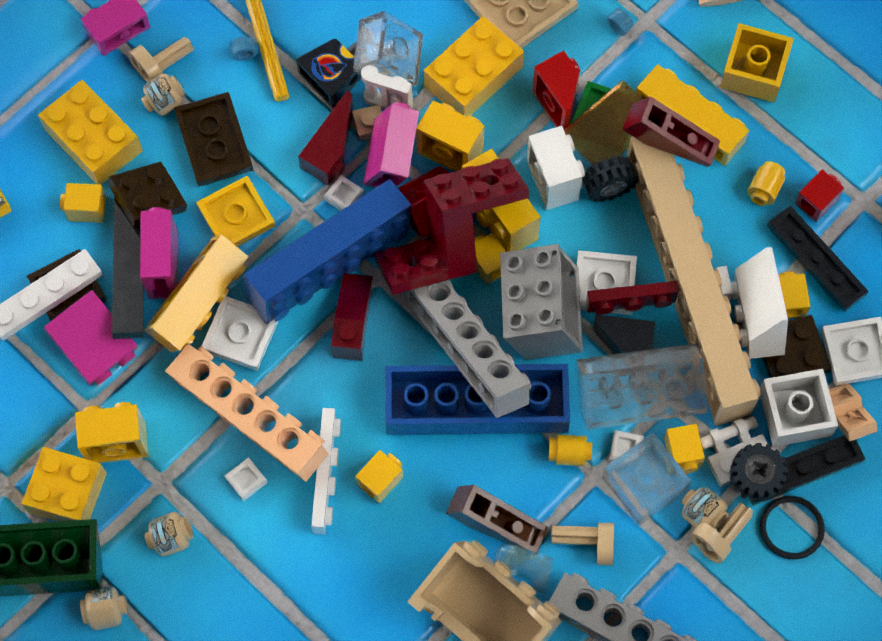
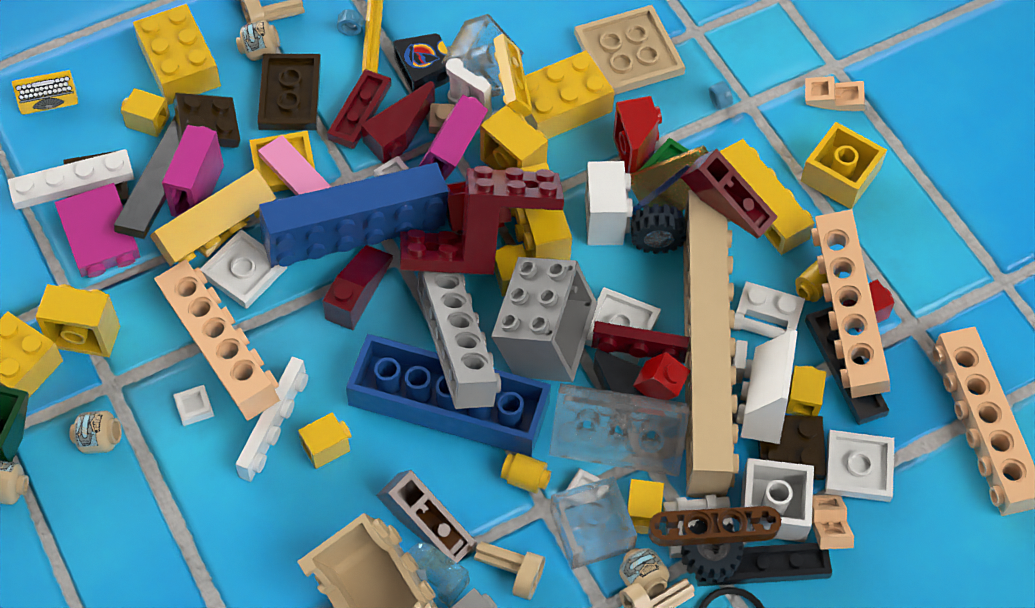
camera: 15 degrees right, 10 degrees down
(254, 222) = (291, 167): none -> bright pink tile
(286, 137) = (359, 108): none -> dark red plate
(426, 67) = (512, 76): none -> yellow plate
(603, 141) = (660, 189): none -> clear blue piece
(664, 327) = (662, 377): none -> red brick
(733, 221) = (768, 306): none -> white plate
(758, 456) = (715, 532): none -> reddish brown beam
(780, 133) = (872, 376): none -> light nougat brick

